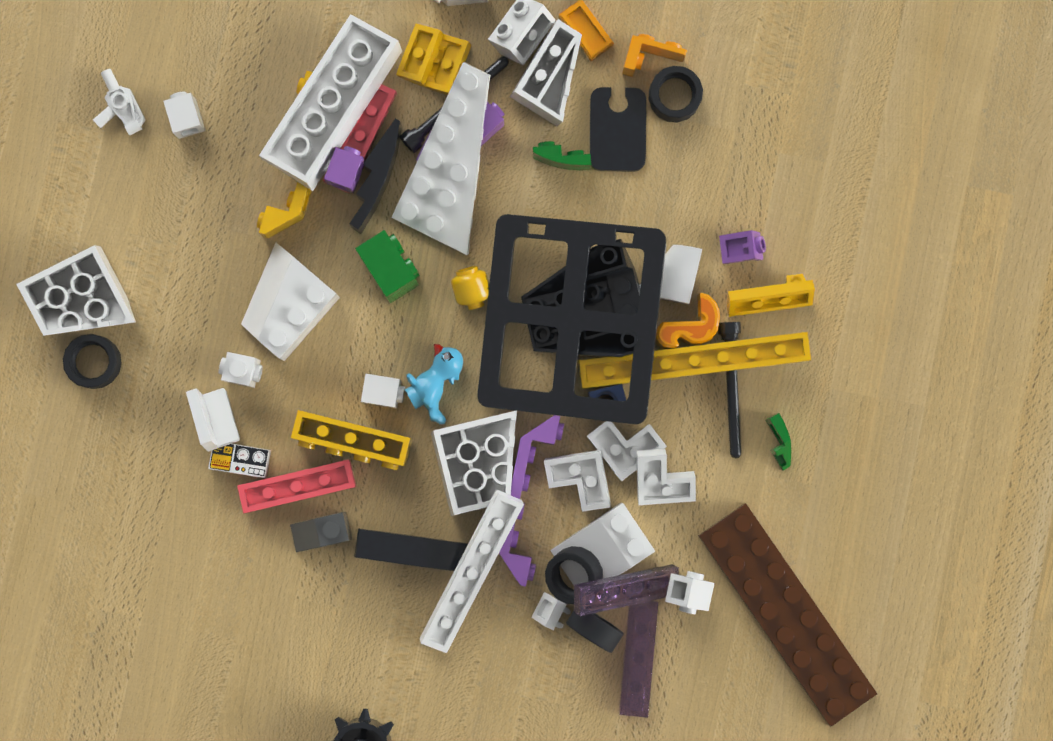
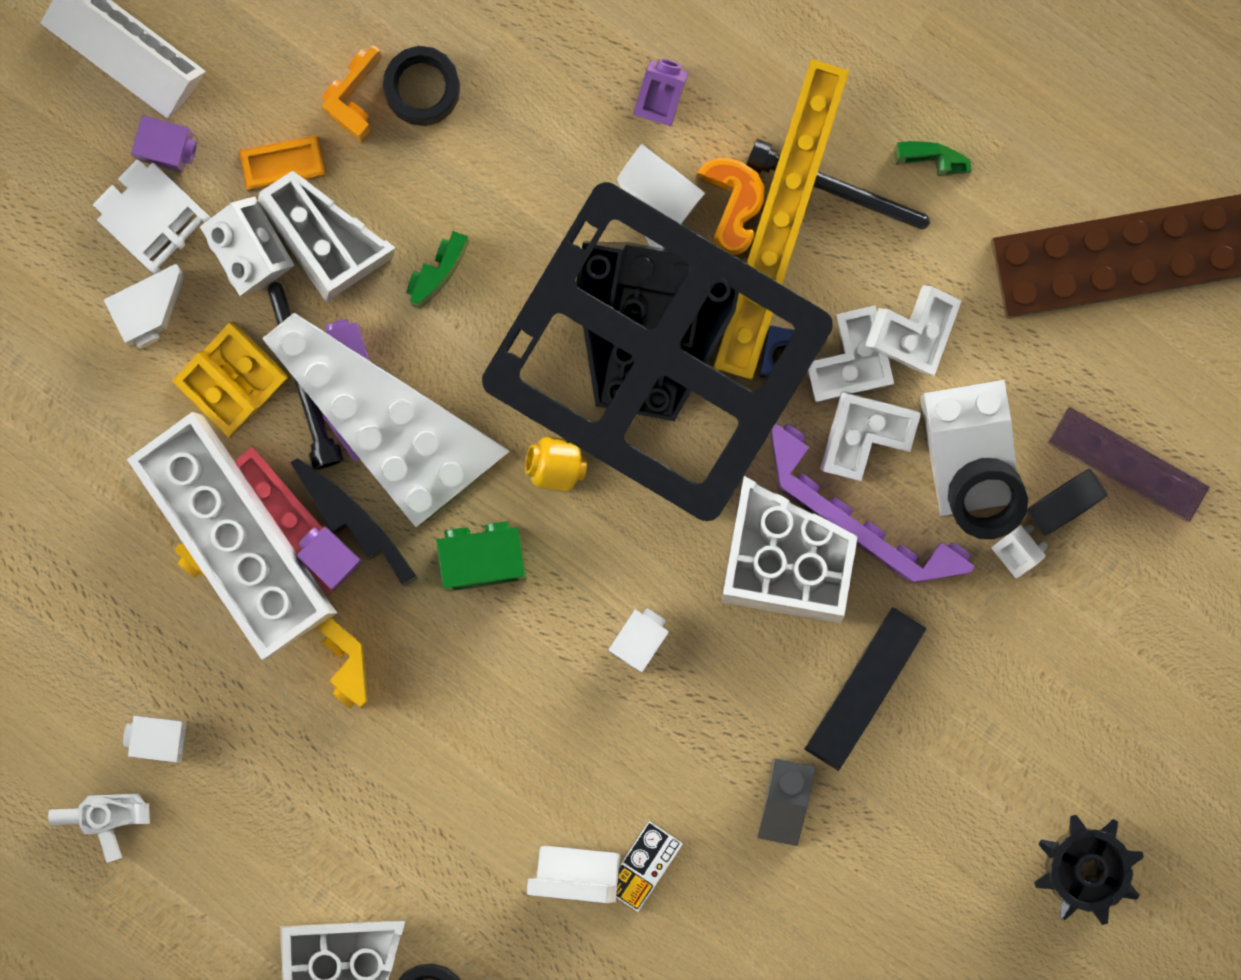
camera: 65 degrees left, 0 degrees up
(240, 369) = (528, 811): white brick -> none
(286, 304) = (465, 714): white wedge -> none
(296, 486) = (712, 806): coral plate -> none
(351, 438) = (682, 707): yellow brick -> none
(429, 385) = (660, 577): medium azure animal -> none
(471, 571) = (925, 627): white plate -> none
(618, 137) = (443, 186): black piece -> none
(622, 590) = (1036, 439): clear purple plate -> none
(689, 592) = (1075, 360): white brick -> none
(792, 294) = (751, 56): yellow hinge -> none

